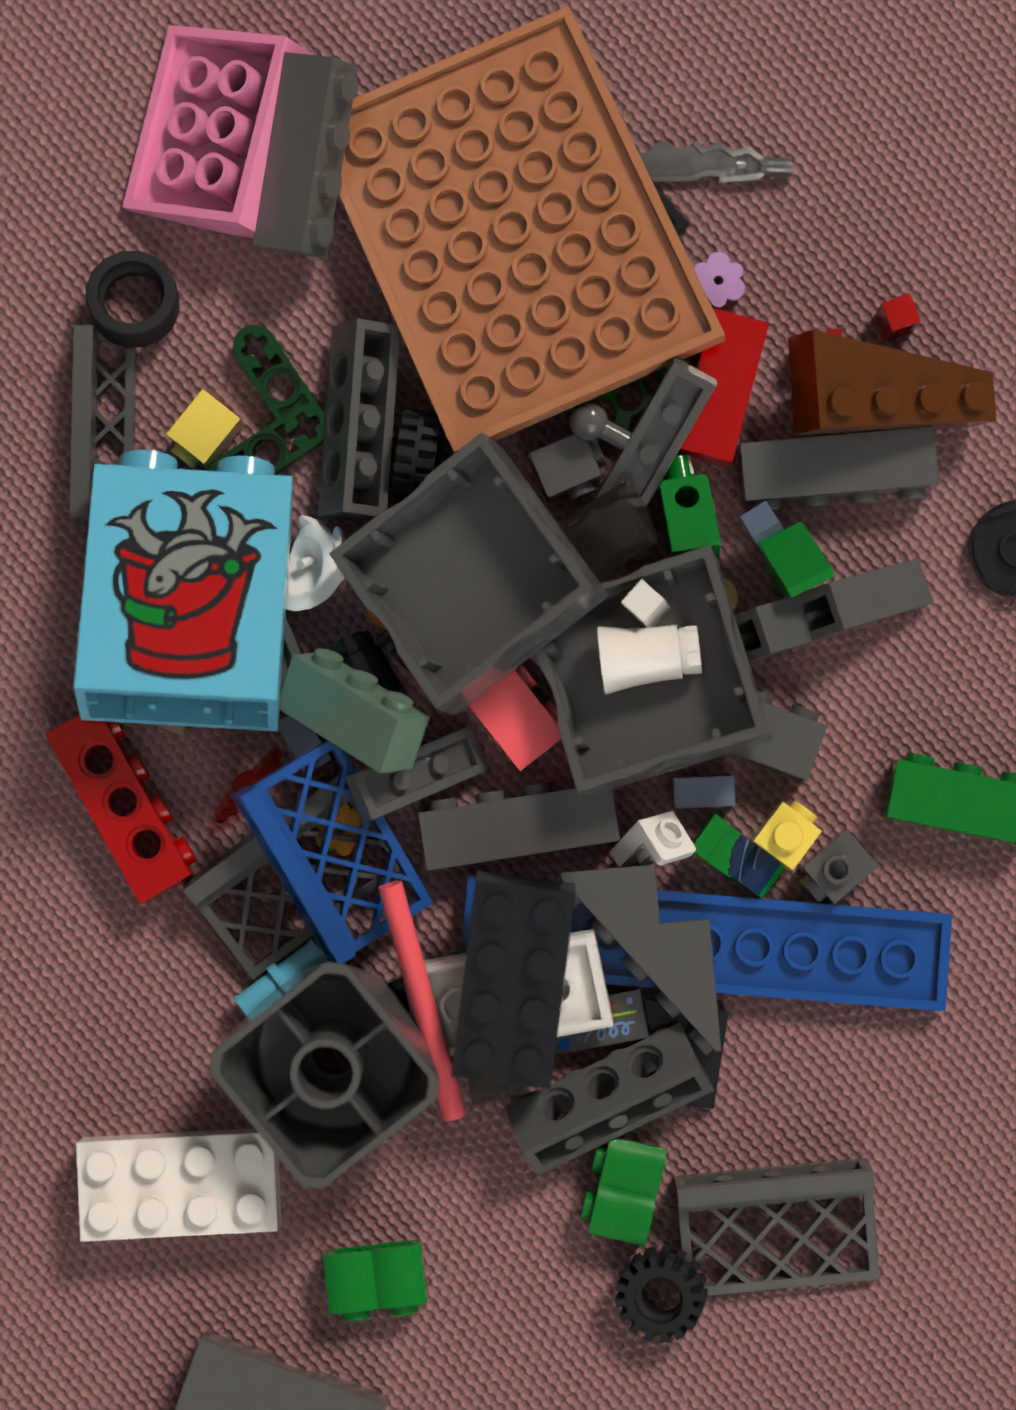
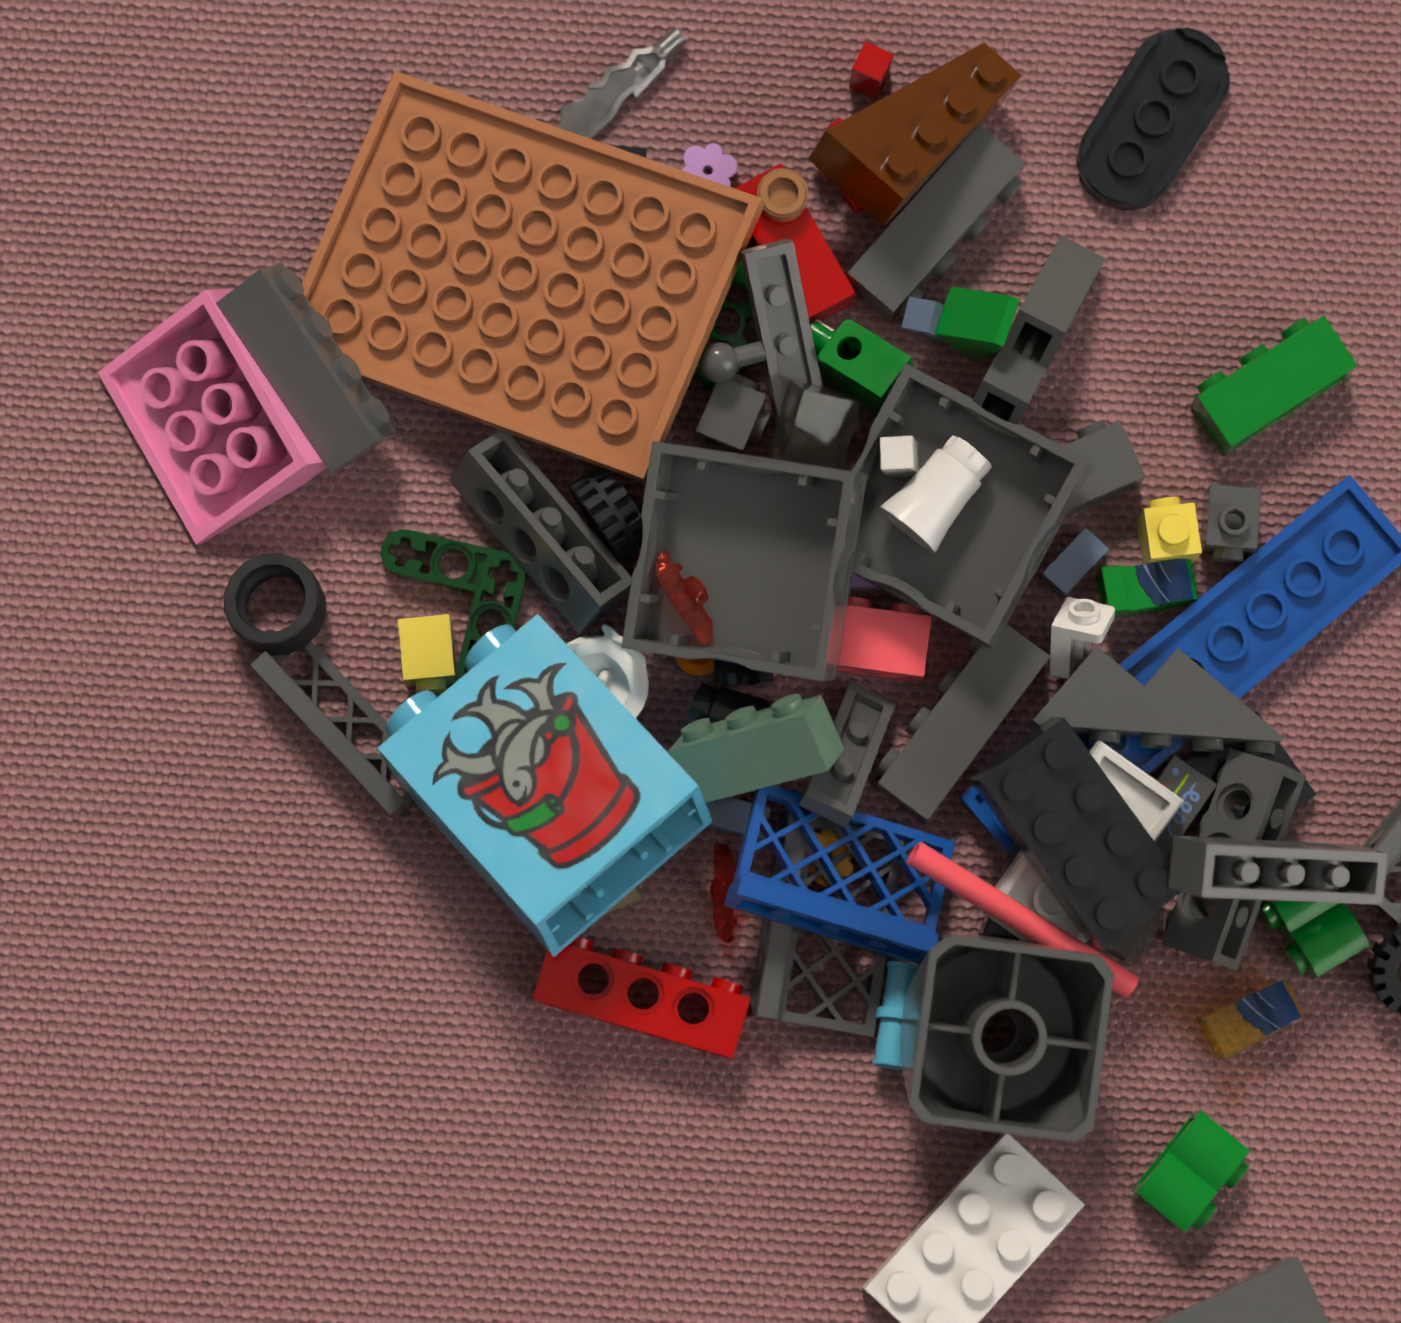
camera: 50 degrees left, 5 degrees down
(407, 561) = (687, 597): none -> clear red piece
(518, 1215) = (1250, 1019): none -> leg
(621, 1137) = (1277, 870): none -> dark grey brick
(747, 346) = (783, 194): none -> medium nougat tile

